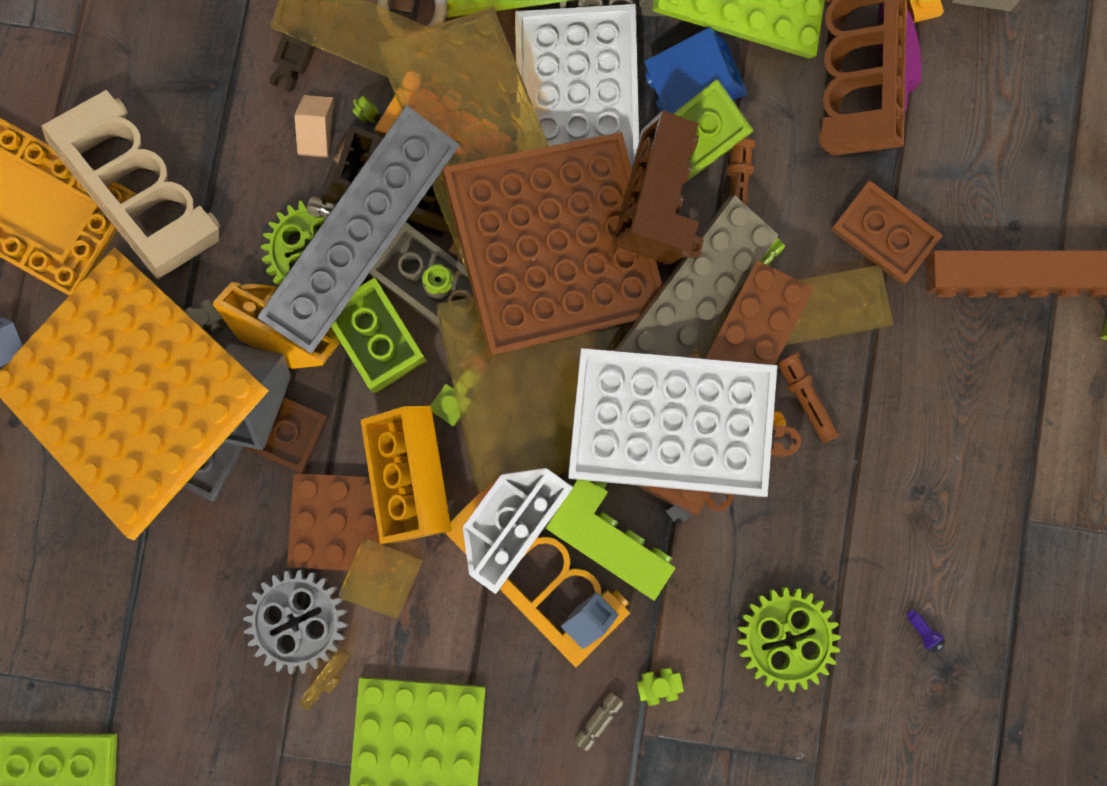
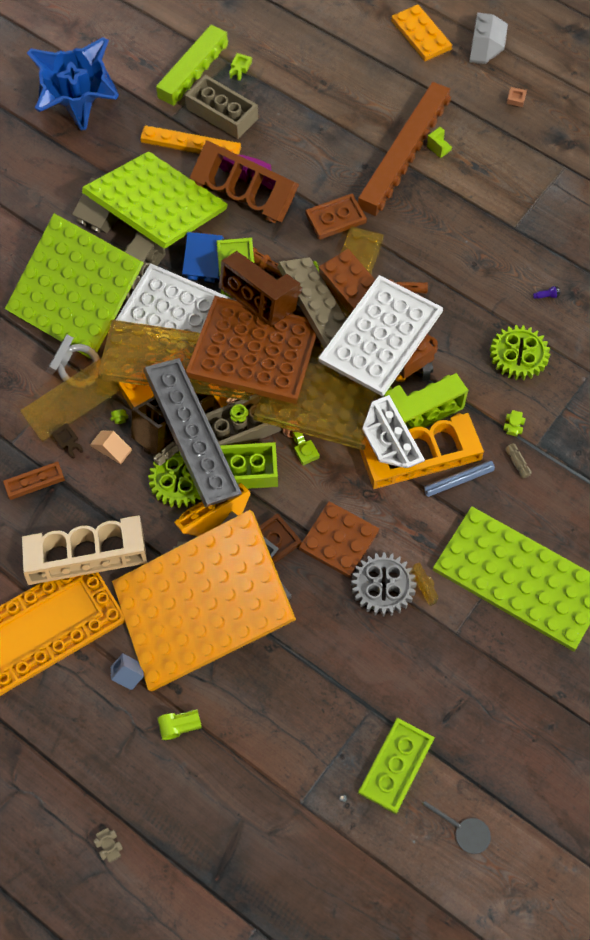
camera: 60 degrees left, 20 degrees down
(206, 53) = (34, 480): none -> dark orange plate
(380, 578) = (383, 527): clear yellow plate -> none
(405, 474) = (334, 483): light orange brick -> none
(523, 647) = (459, 478): none -> sand blue axle
(589, 620) = (462, 431): sand blue panel -> none

